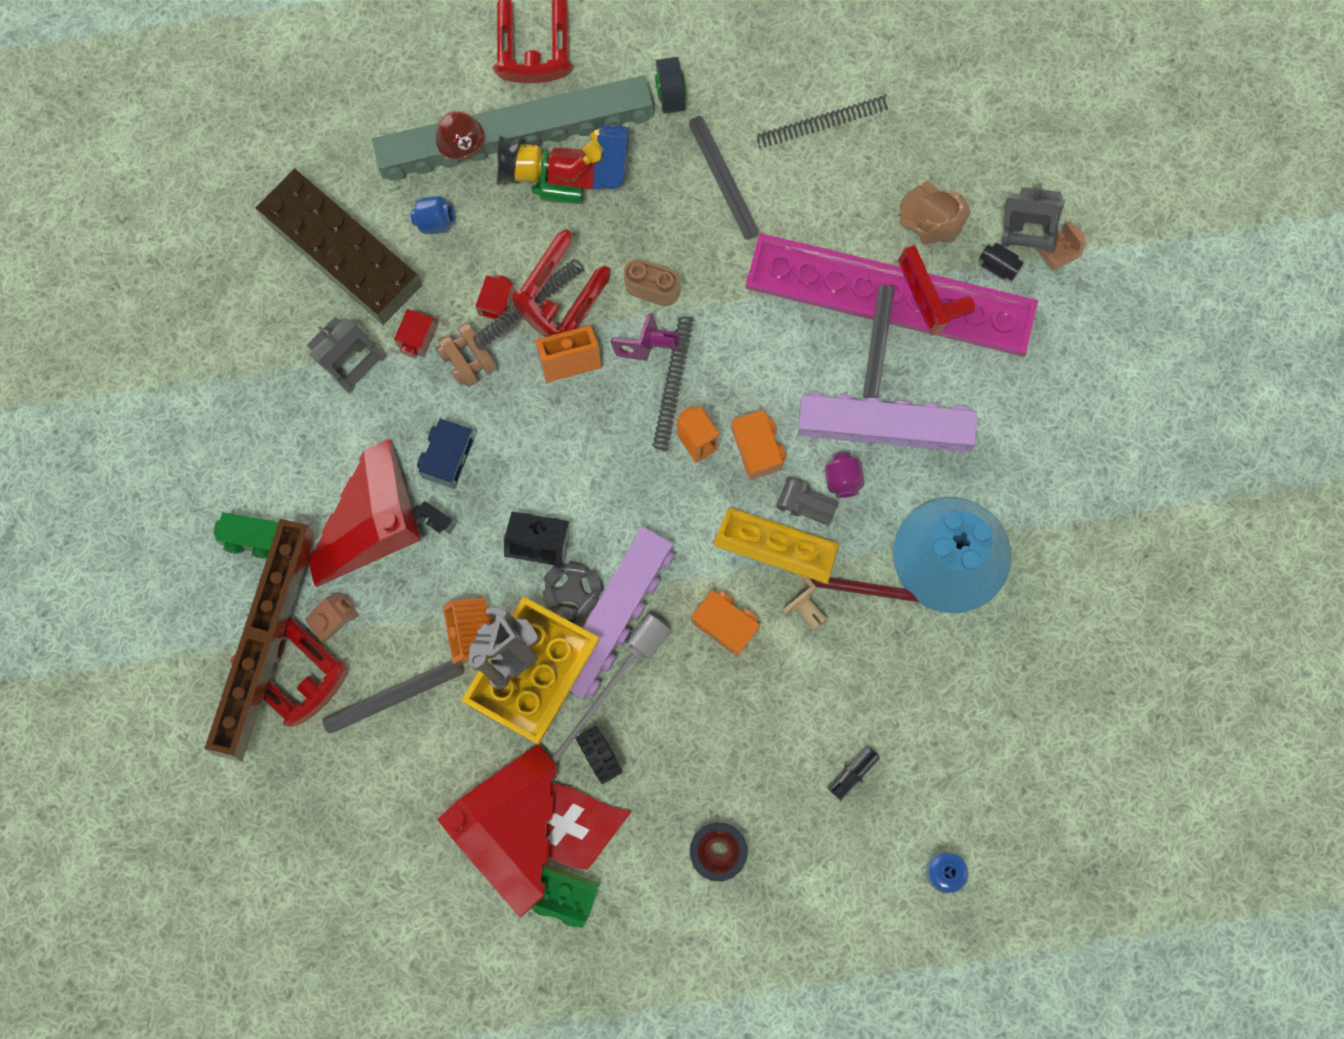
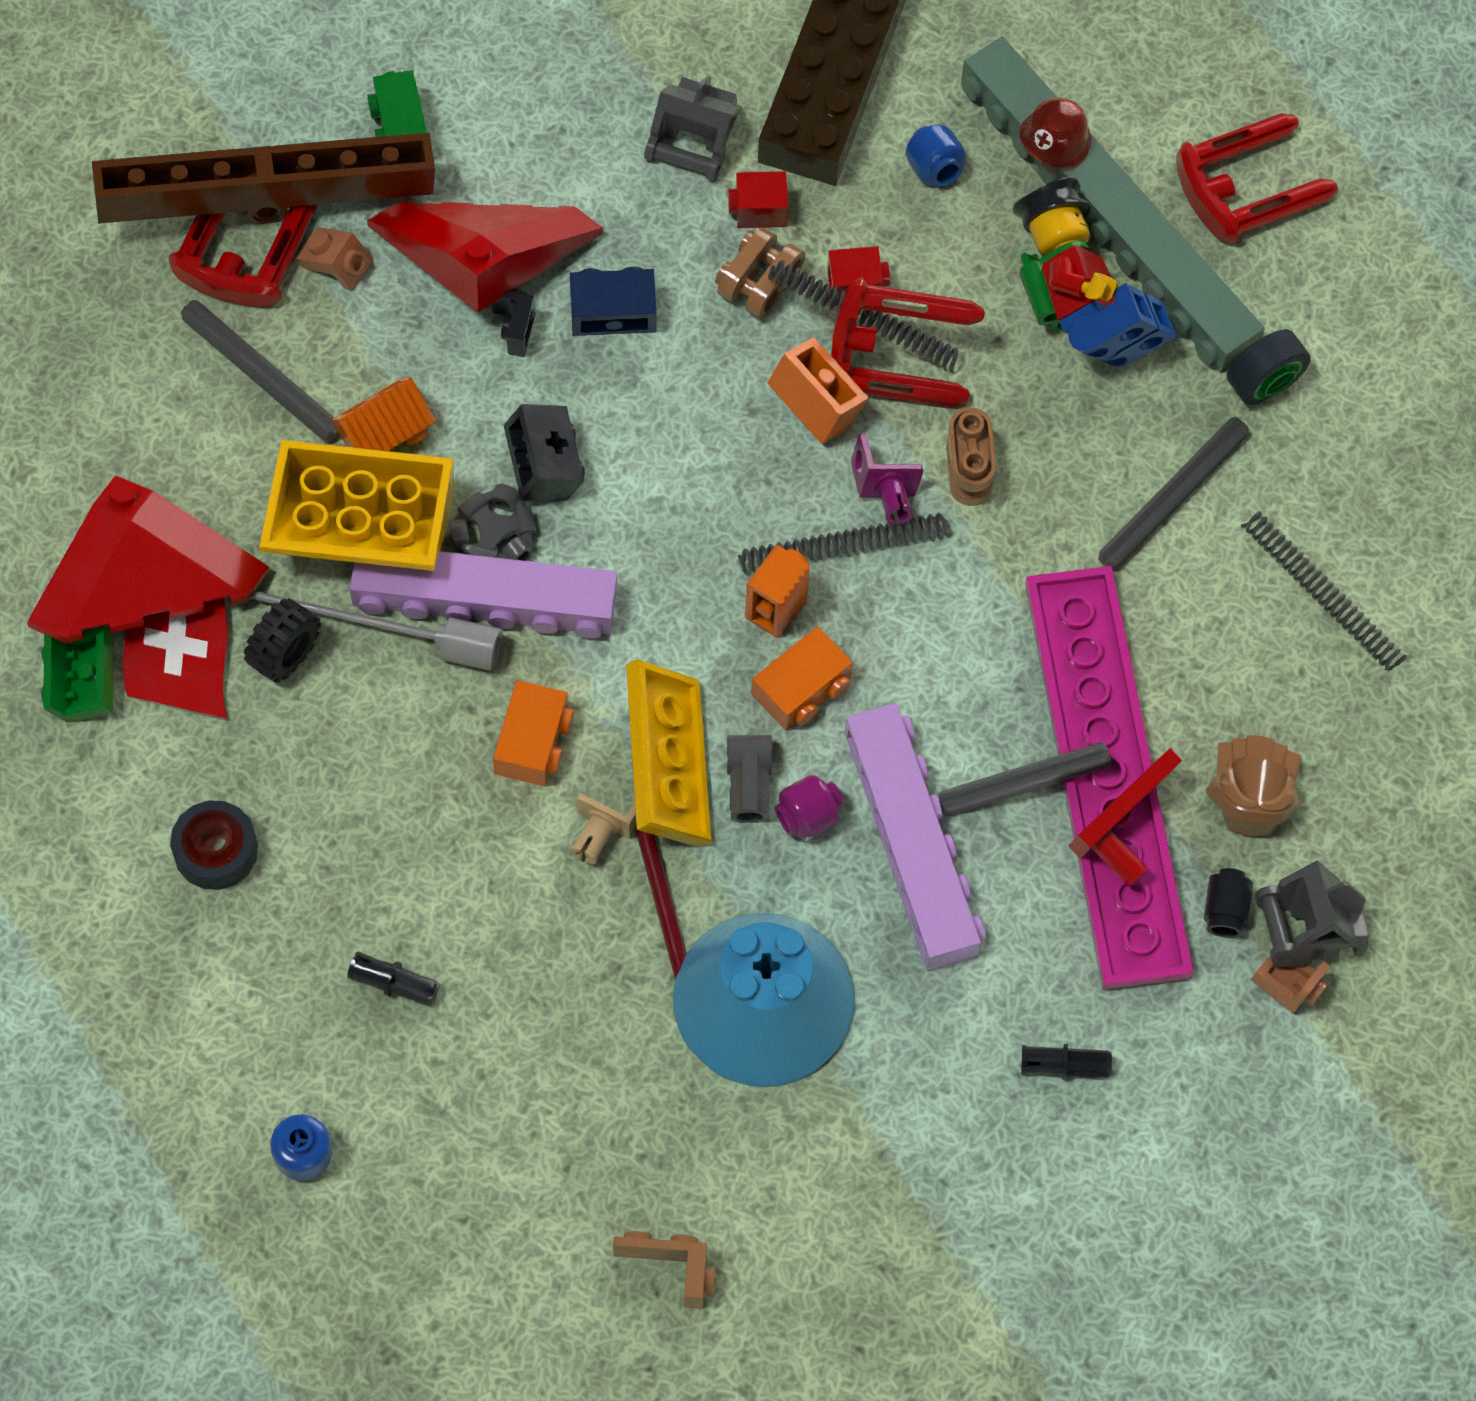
camera: 60 degrees right, 10 degrees down
(507, 644) = (380, 448): dark grey piece -> none
(1062, 397) = (1066, 1061): none -> black axle
(1116, 664) = (679, 1248): none -> medium nougat bracket

